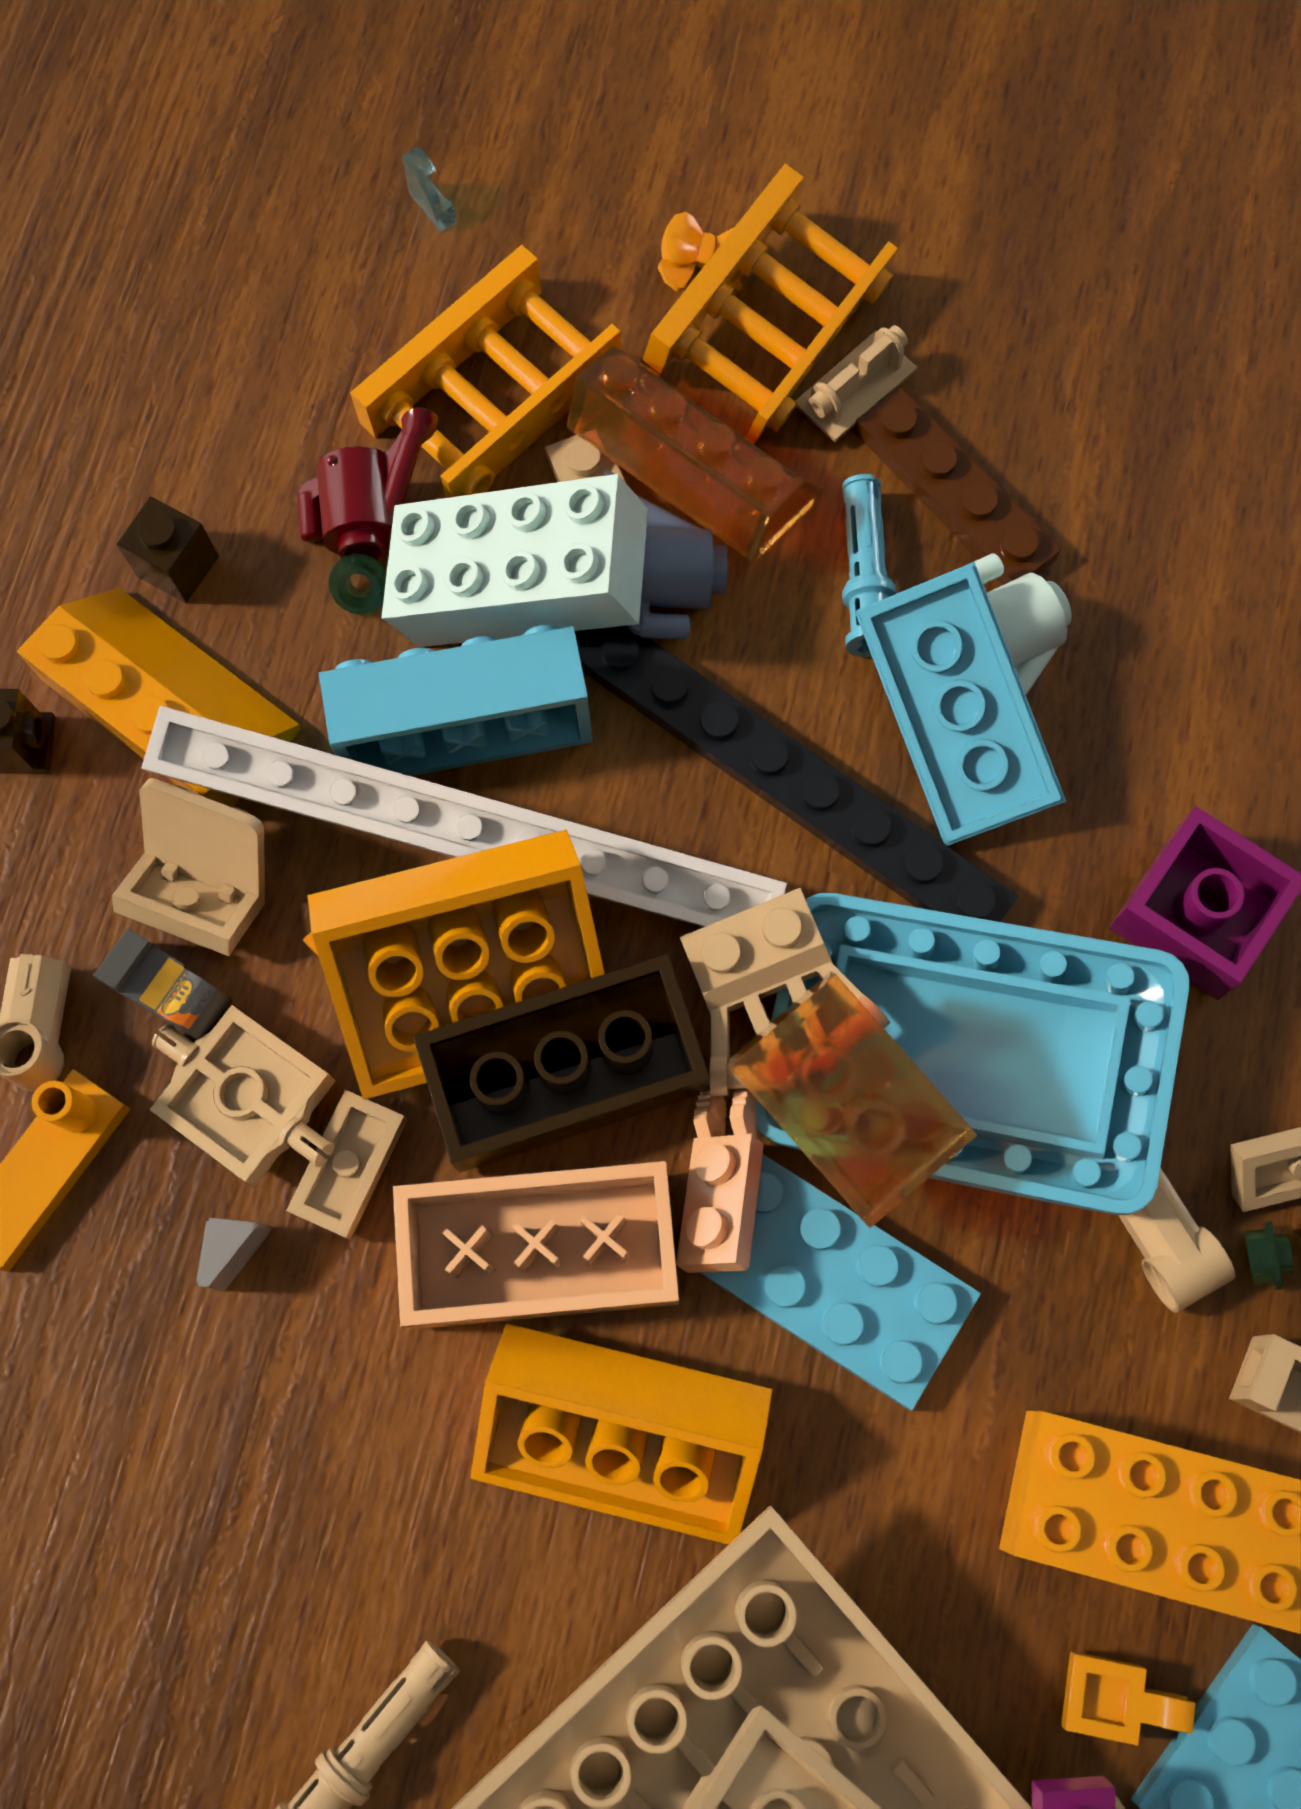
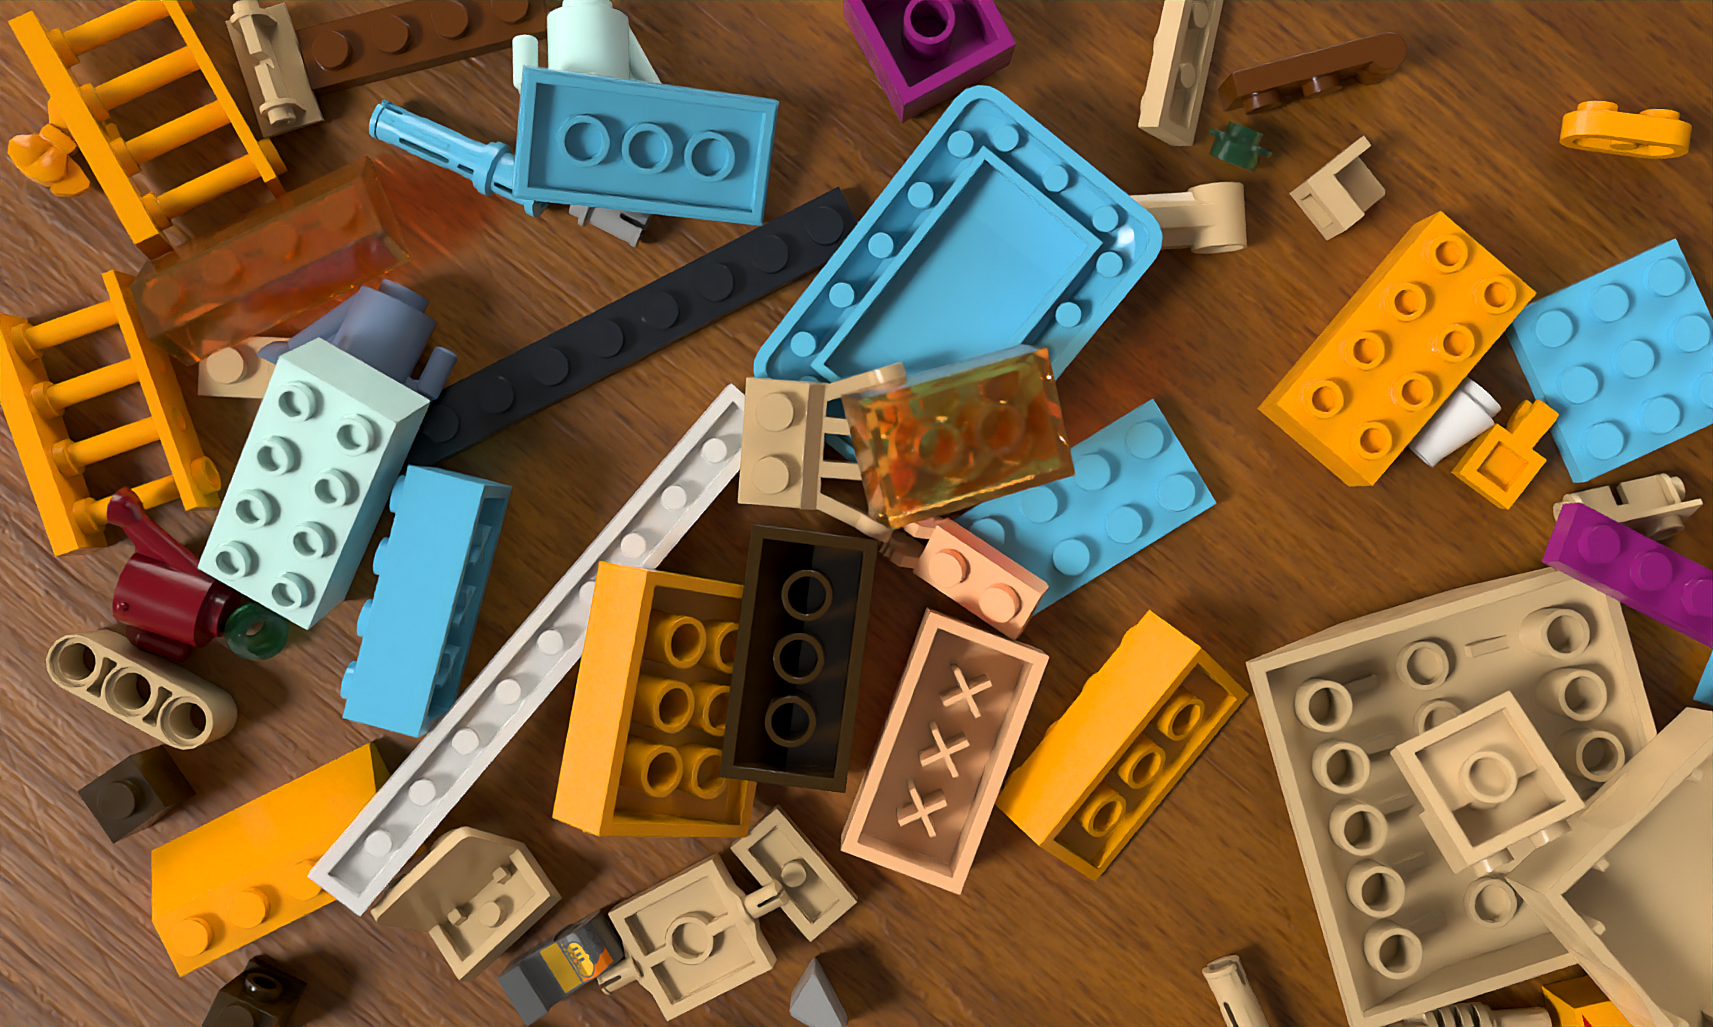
camera: 70 degrees left, 15 degrees up
(259, 490) = (115, 689): none -> tan beam
(880, 719) = (620, 223): none -> light grey pin
(1123, 1622) = (1455, 423): none -> white cone

